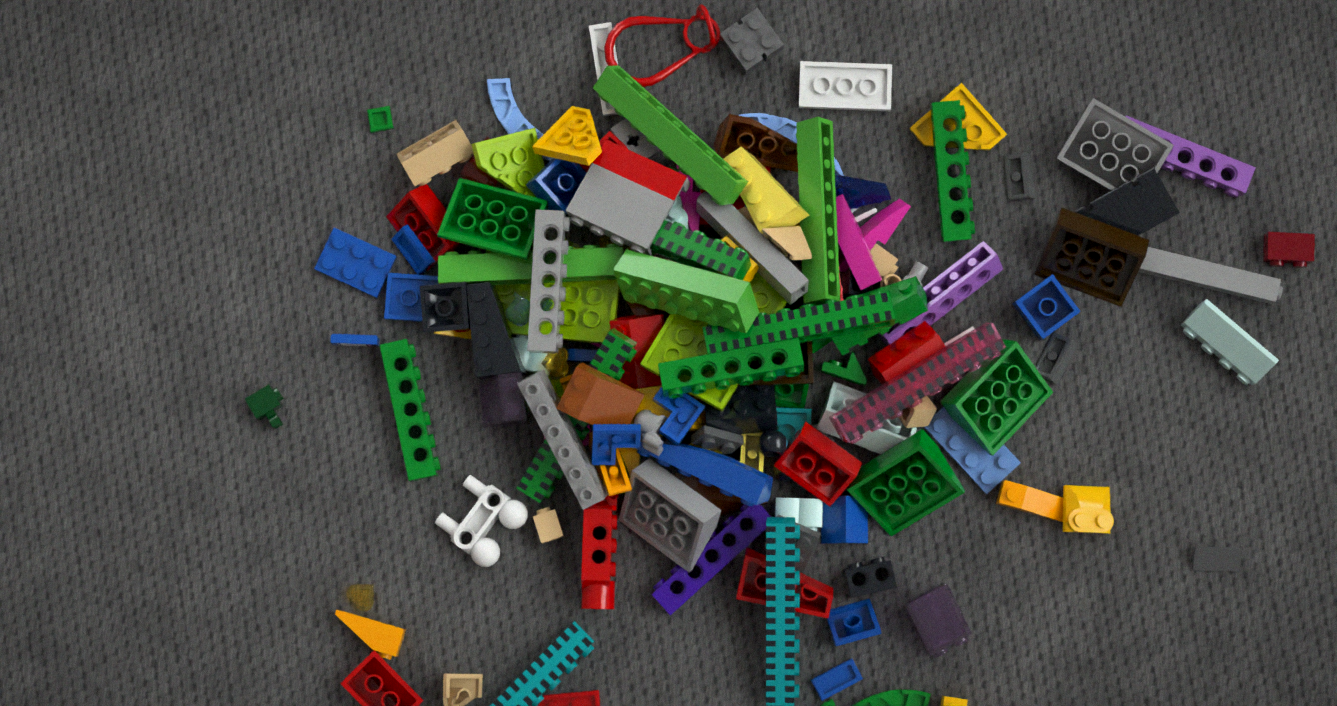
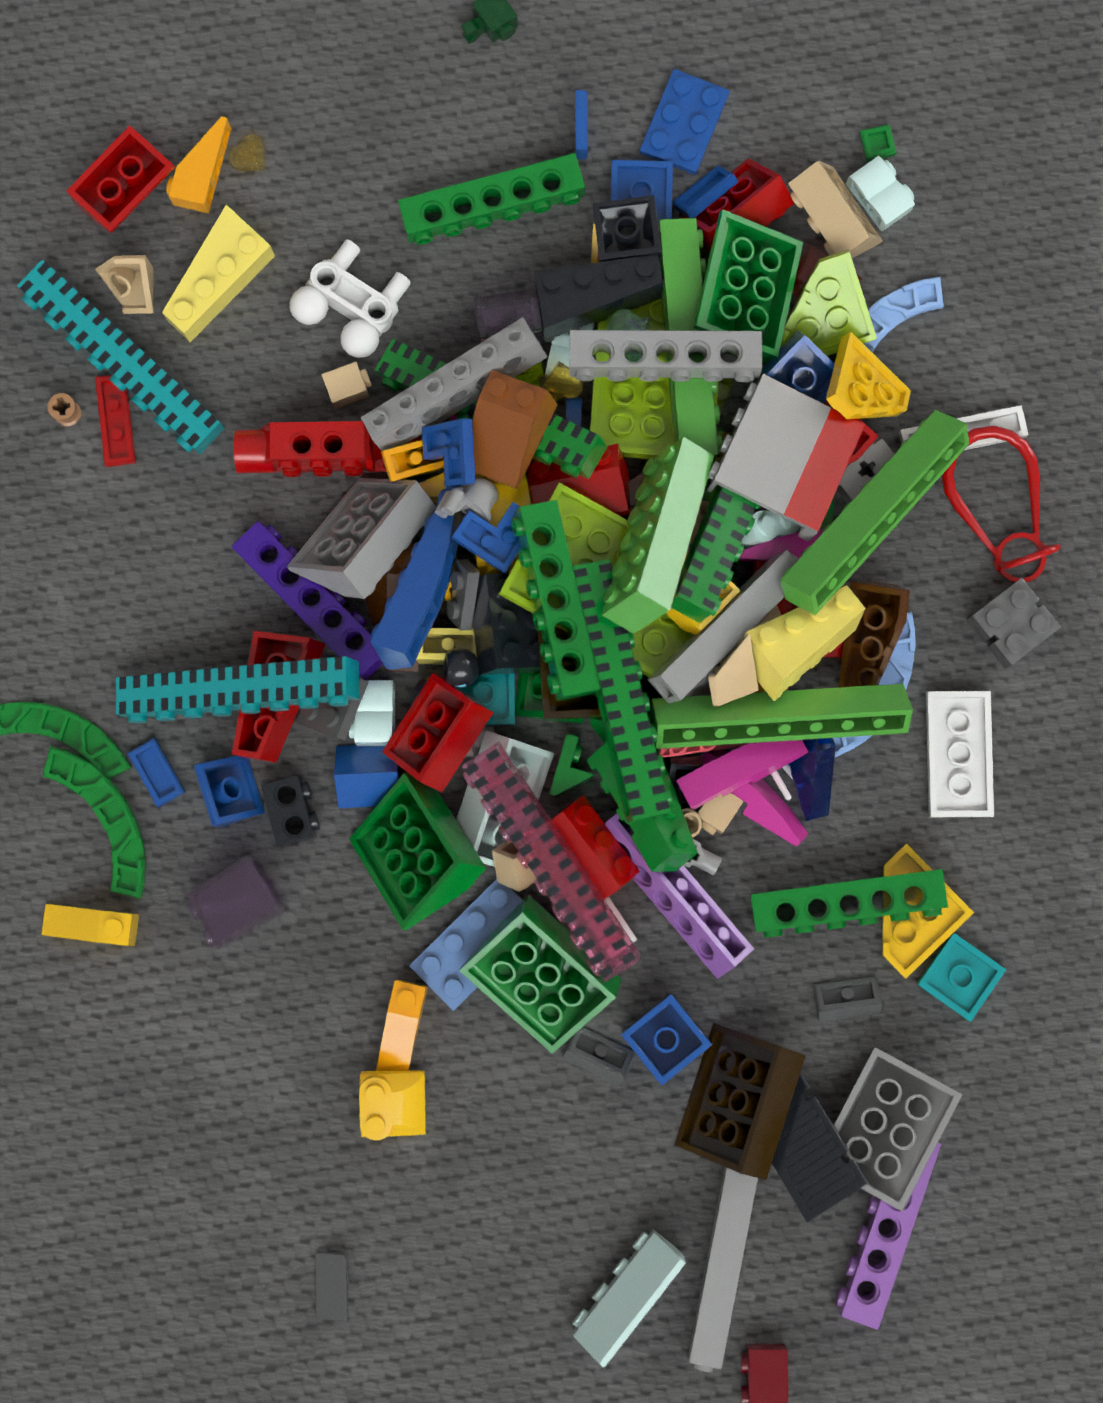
camera: 90 degrees right, 0 degrees up
(421, 118) = (881, 193): none -> light aqua brick
(456, 620) = (217, 274): none -> light yellow wedge
(1006, 94) = (961, 977): none -> teal plate

